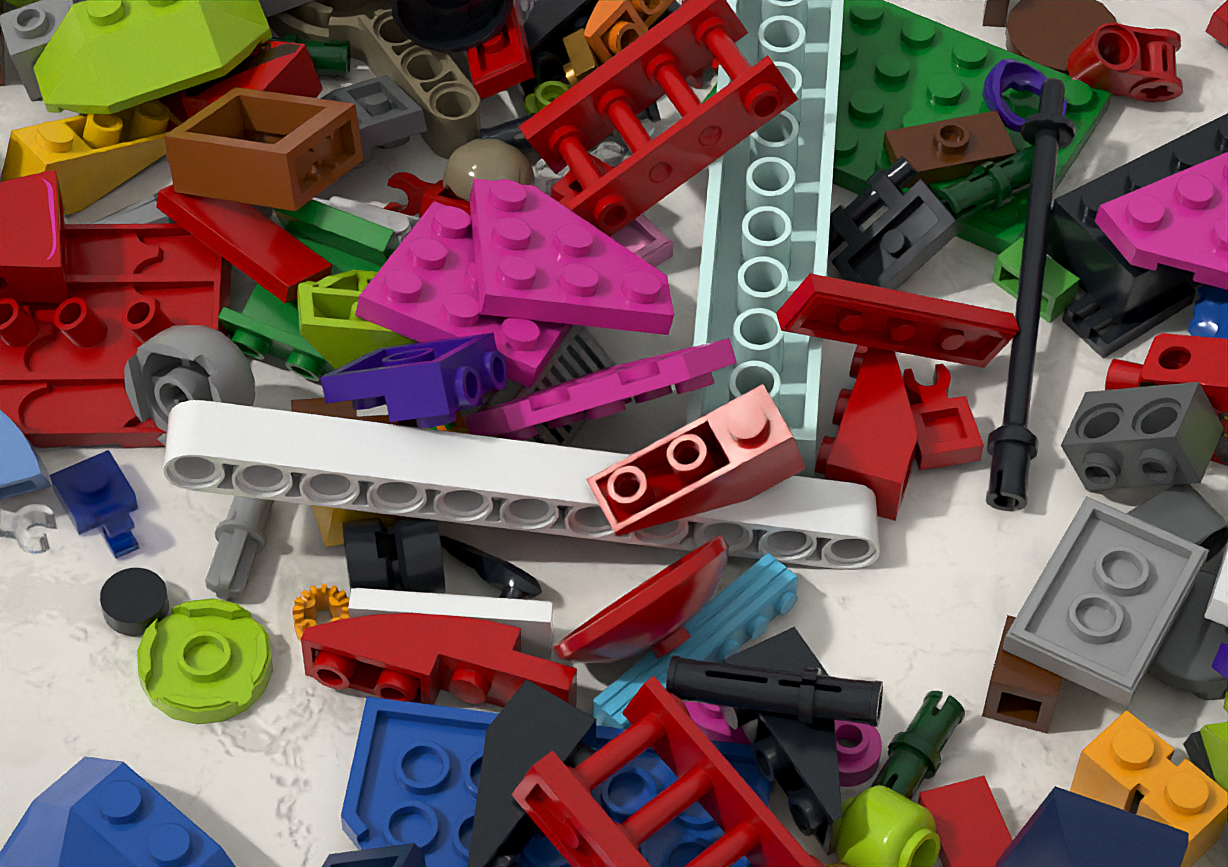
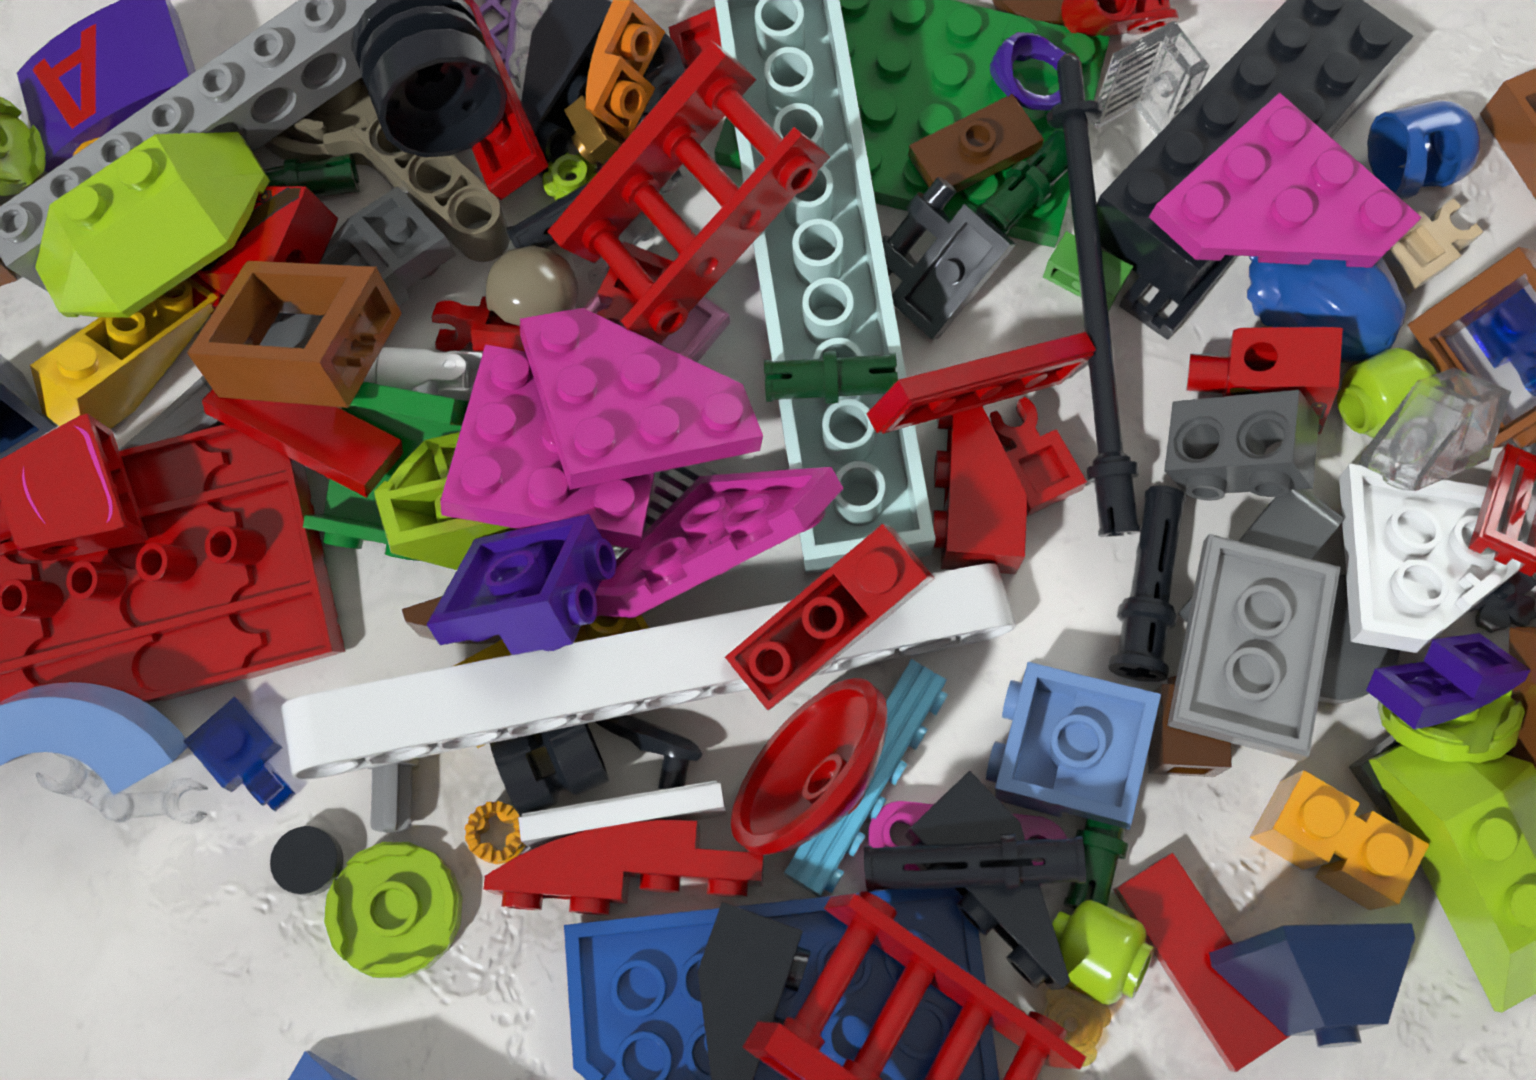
camera: 10 degrees left, 20 degrees up
(186, 366) = (301, 620): light grey cylinder -> none
(743, 279) = (829, 377): none -> dark green pin
(915, 643) = (1073, 745): none -> medium blue plate
(1009, 592) = (1147, 611): none -> black pin
(1129, 118) = (1154, 77): none -> clear panel

